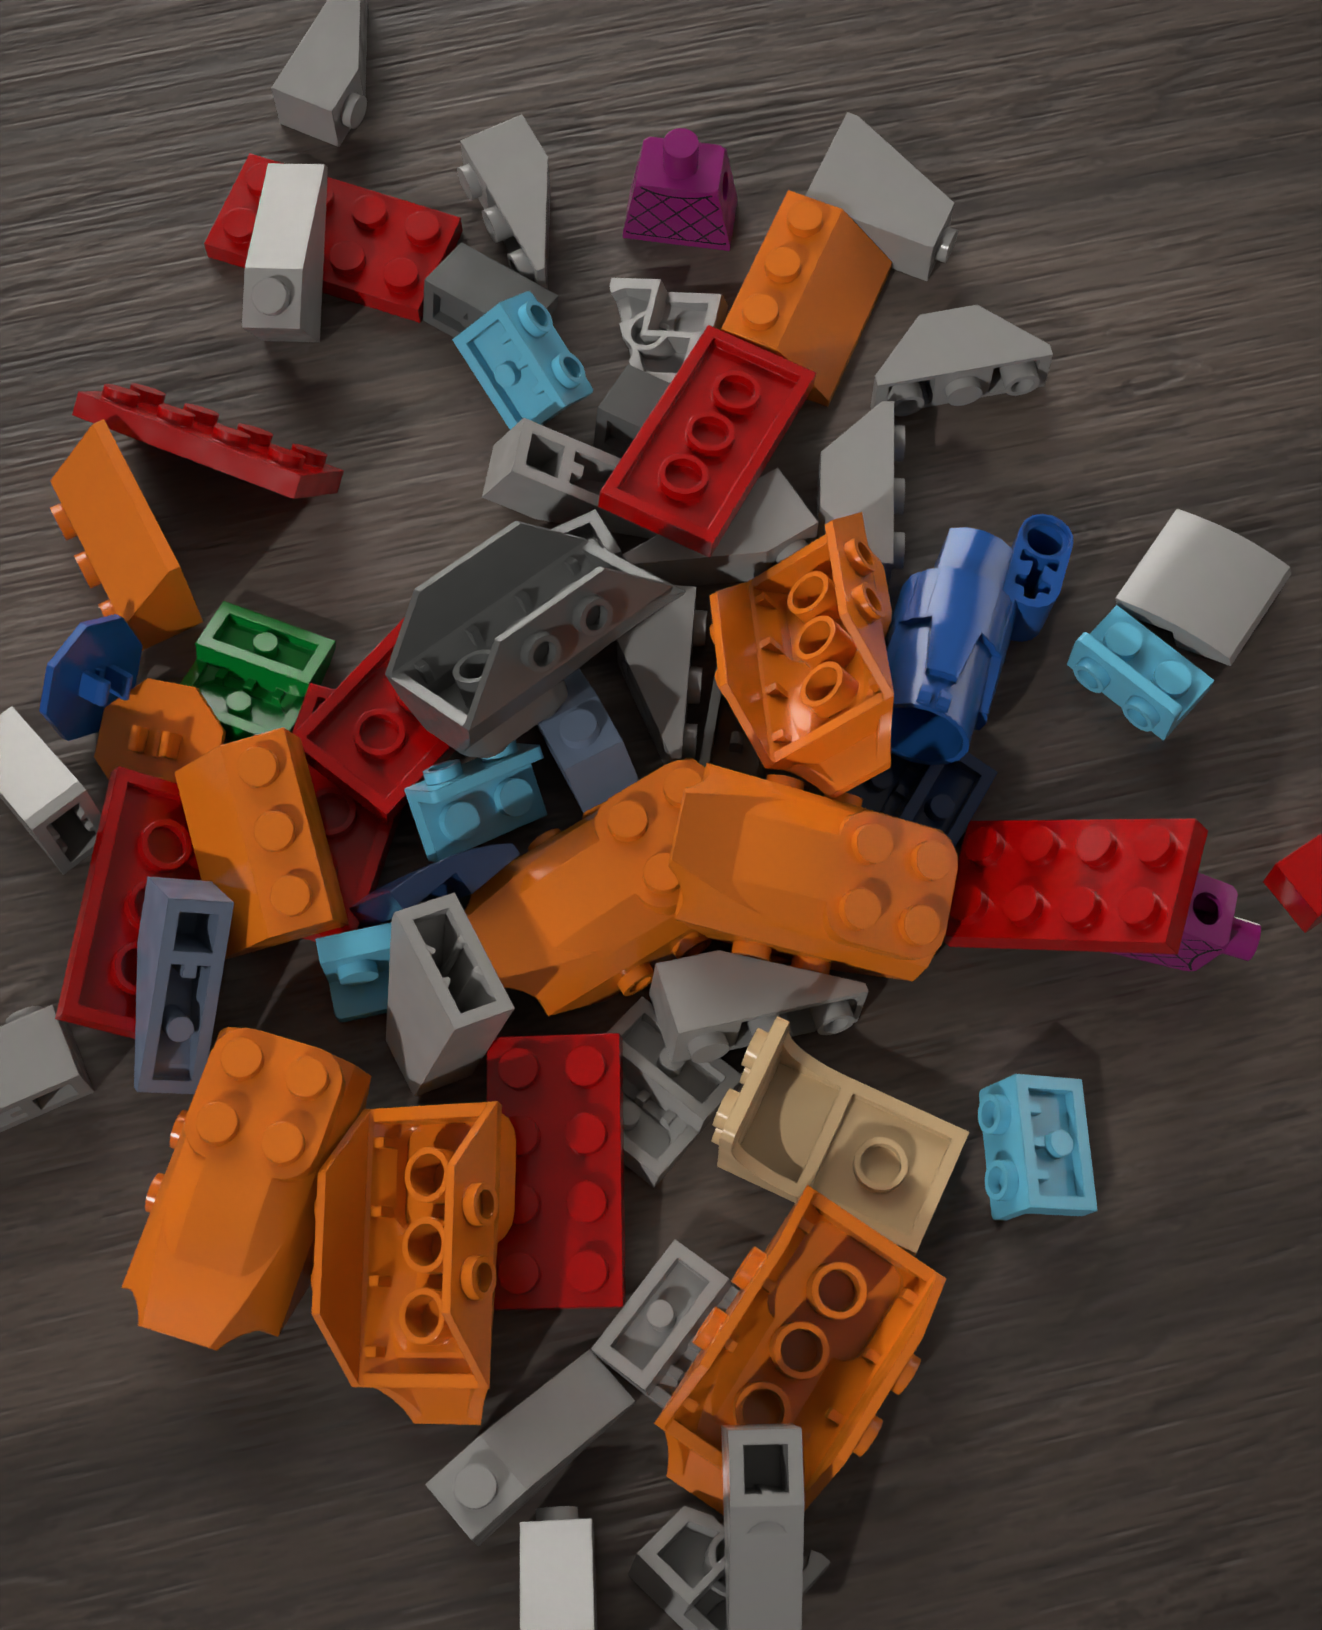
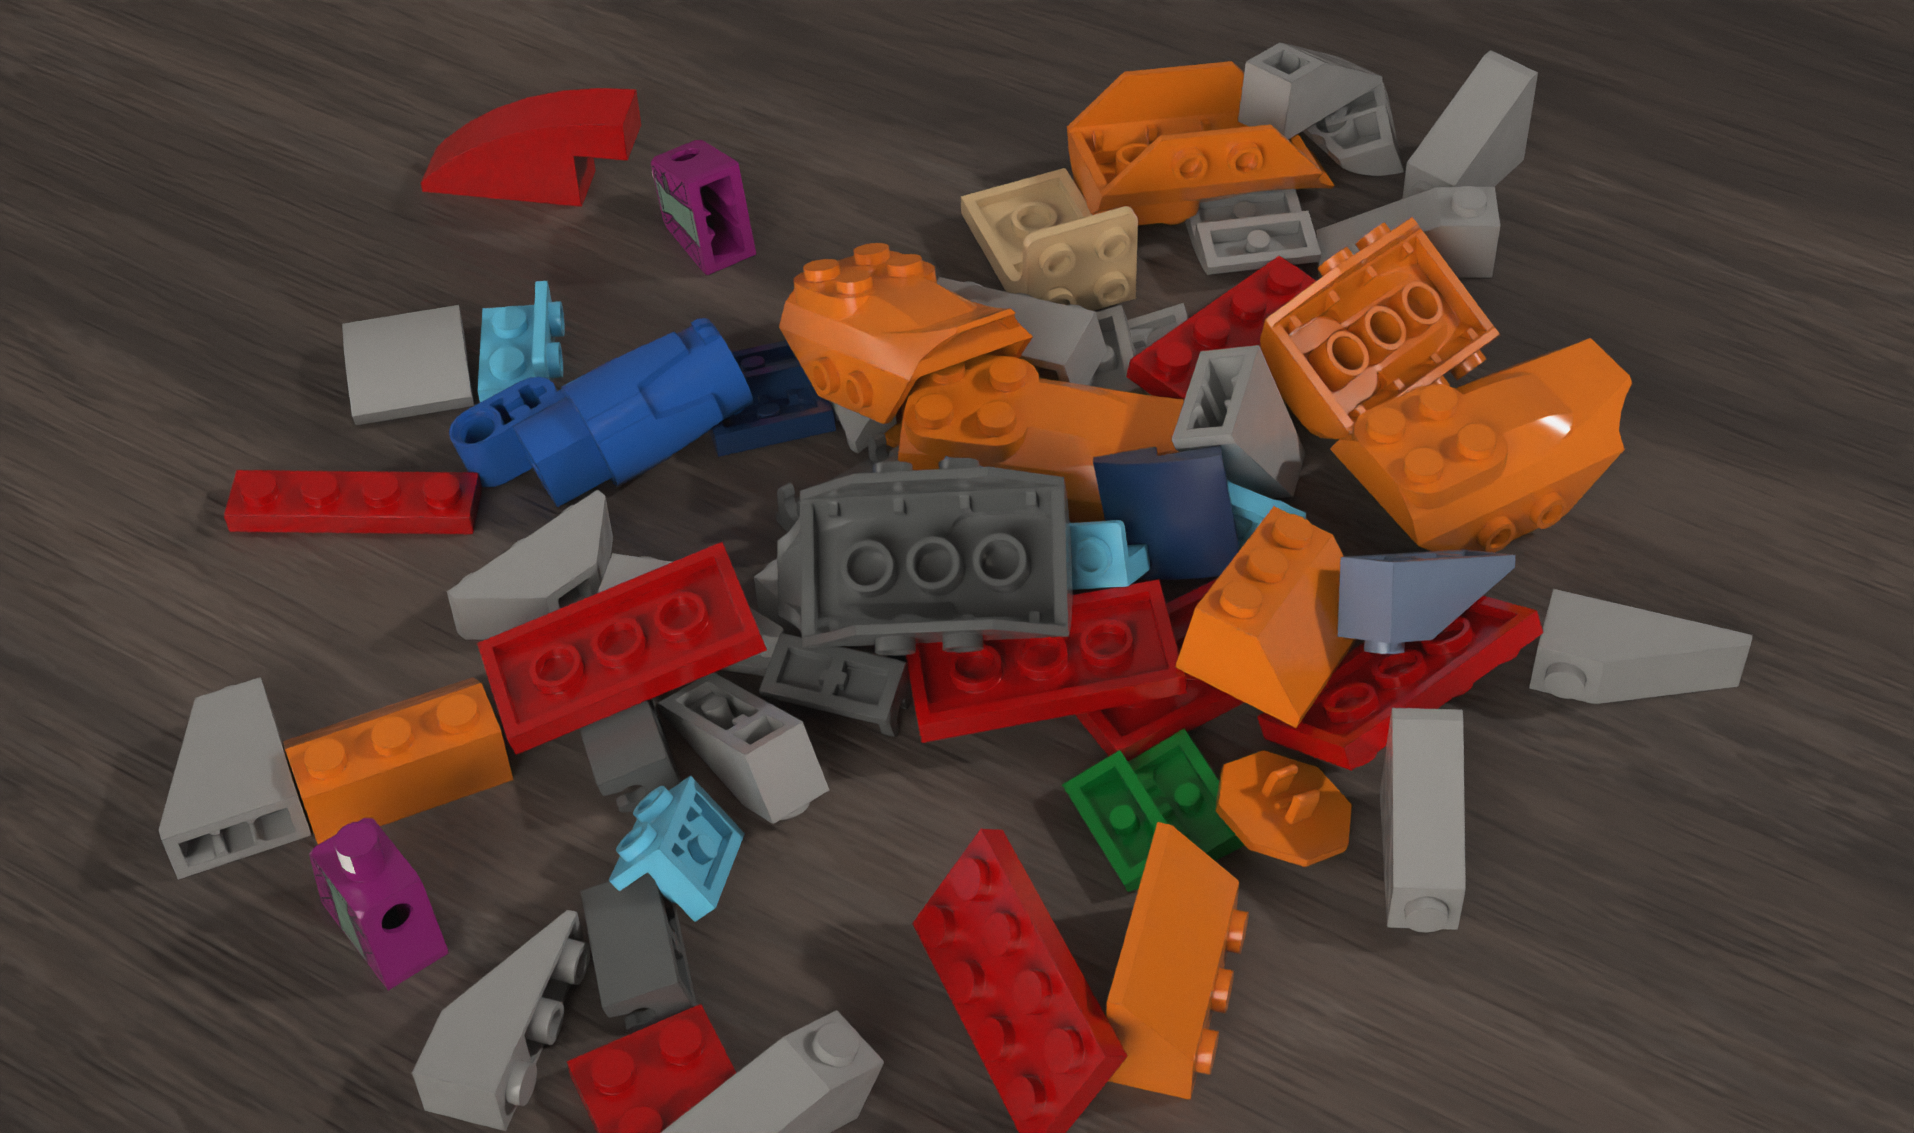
camera: 135 degrees left, 20 degrees down
(88, 674) = (1303, 858): blue piece -> none
(663, 324) = (526, 815): light grey slope -> none
(810, 660) = (730, 438): orange slope -> none
(958, 359) = (359, 616): light grey slope -> none
(1036, 1147) = (930, 174): medium azure bracket -> none
(1076, 884) = (738, 214): red plate -> none
(1087, 451) = (353, 502): none -> red plate

